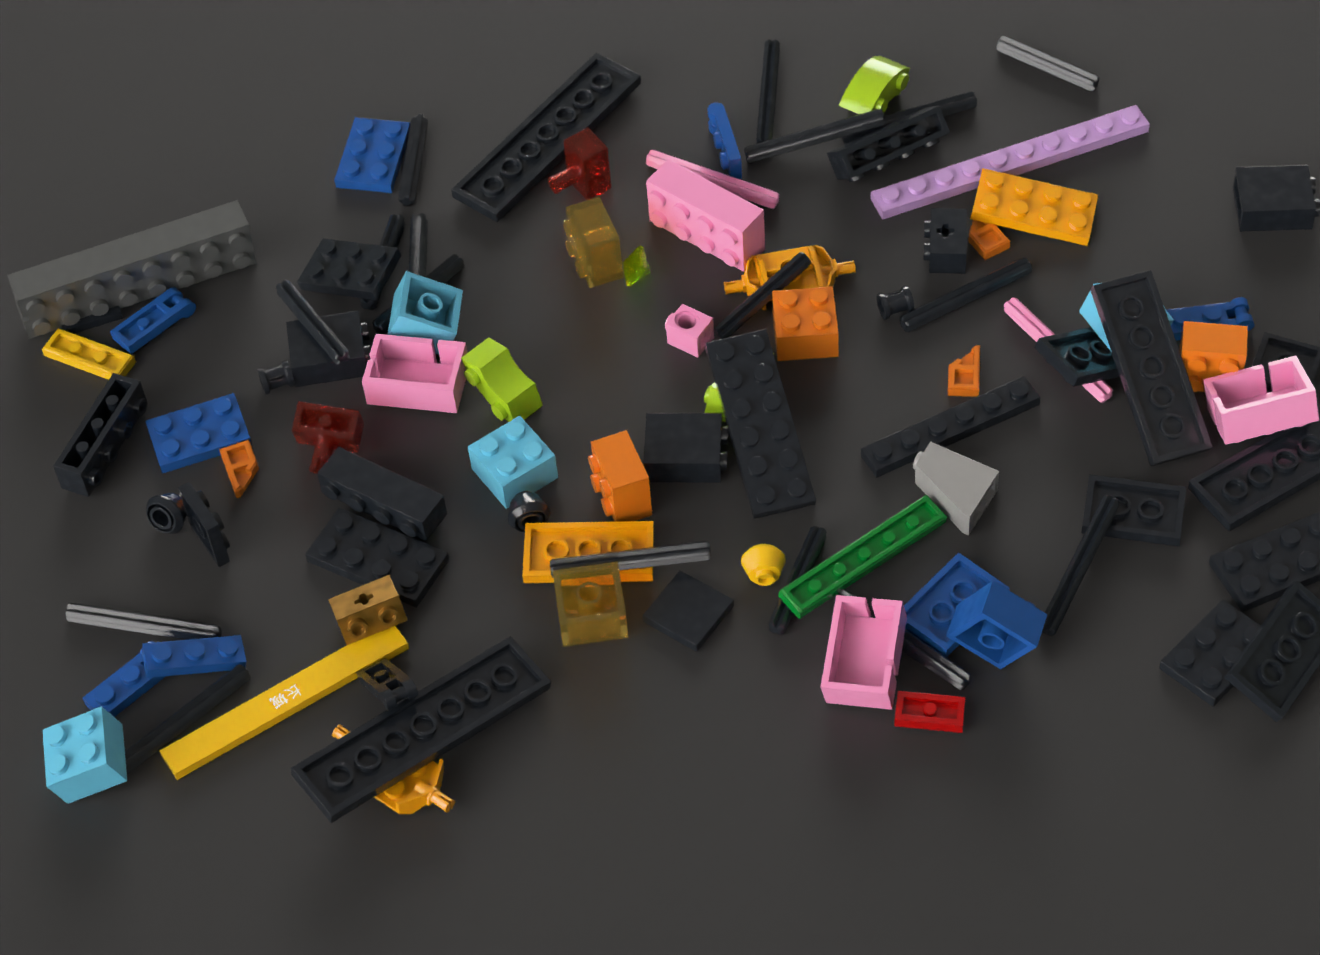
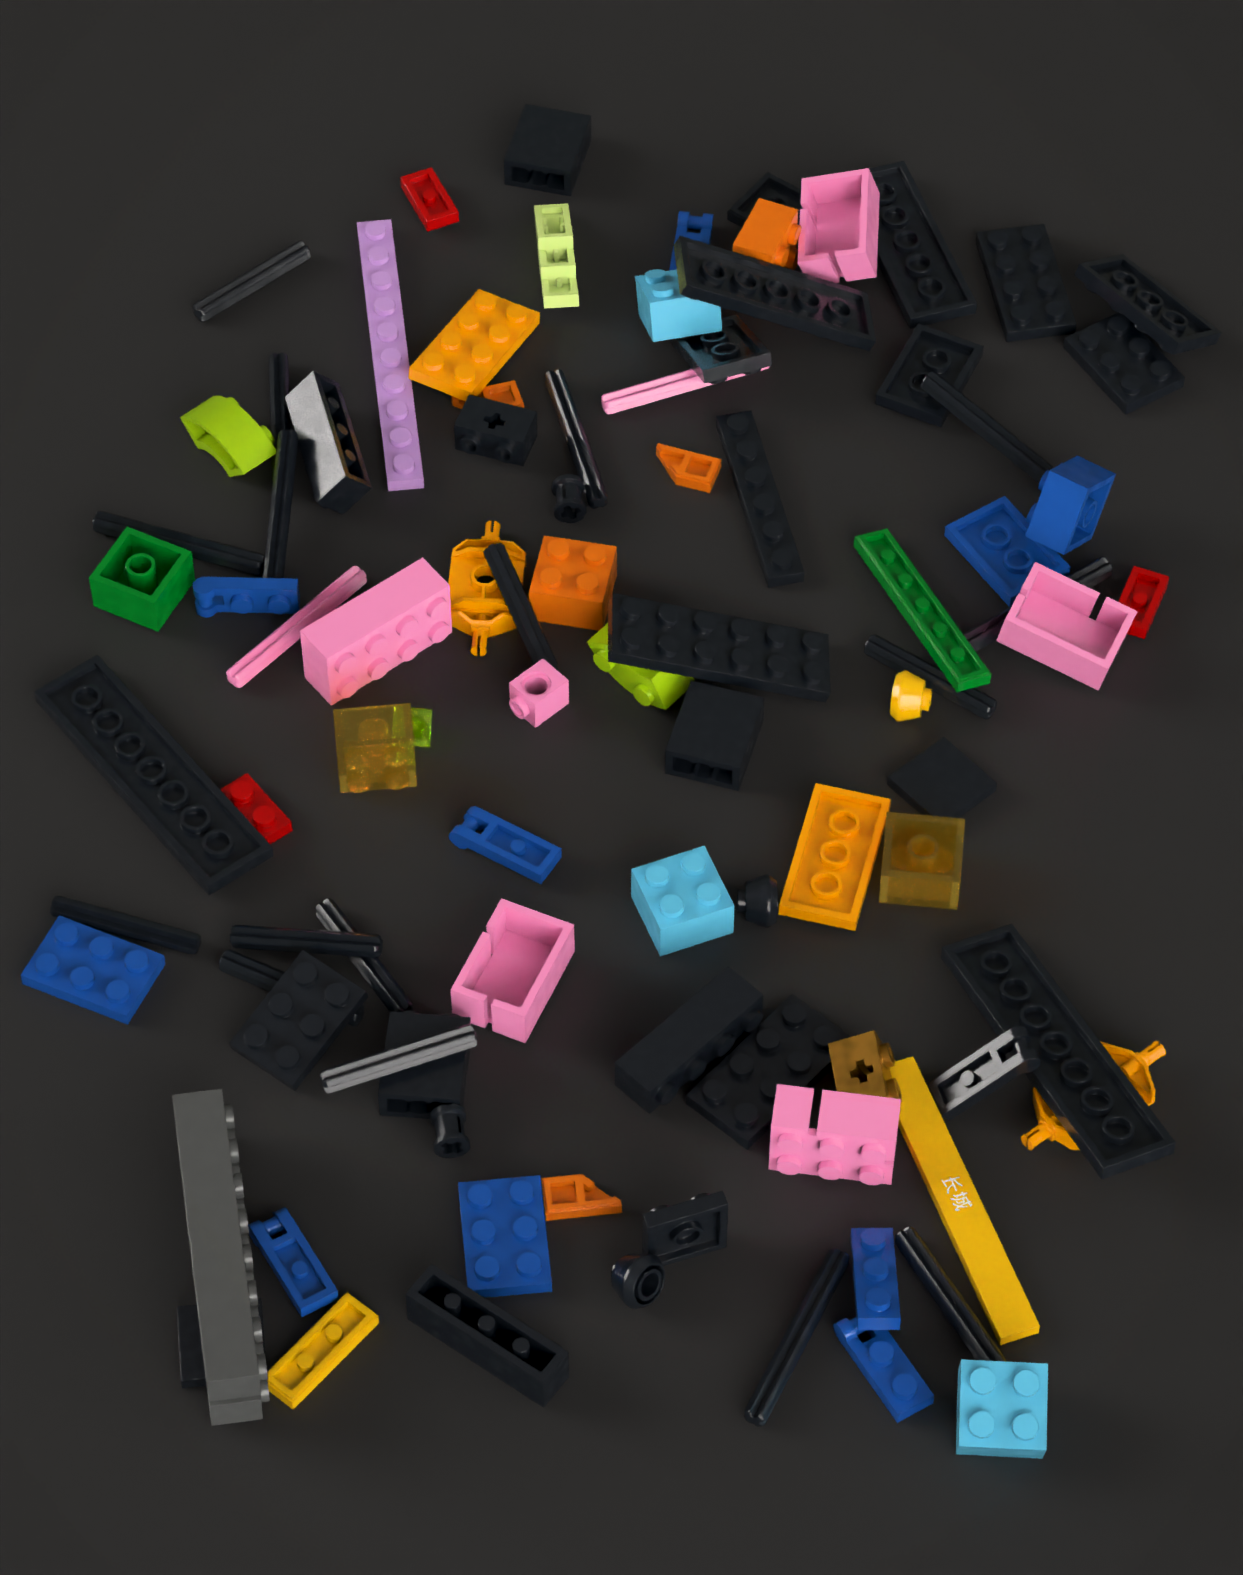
camera: 80 degrees left, 0 degrees up
(305, 597) = (851, 1139): none -> bright pink piece
(326, 430) = (571, 1082): clear red brick -> none
(425, 309) = (424, 941): medium azure brick -> none
(501, 381) = (558, 885): lime brick -> none
(533, 203) = (258, 808): none -> red plate
(542, 346) = (506, 844): none -> blue plate
(586, 166) = (243, 732): clear red brick -> none
(620, 478) = (755, 792): orange brick -> none
(639, 557) = (871, 811): black axle -> none
(714, 75) = (142, 579): none -> green brick
(955, 484) = (851, 506): light grey slope -> none
(1166, 232) = (556, 256): none -> yellowish green slope
(1183, 141) = (429, 199): none -> red plate

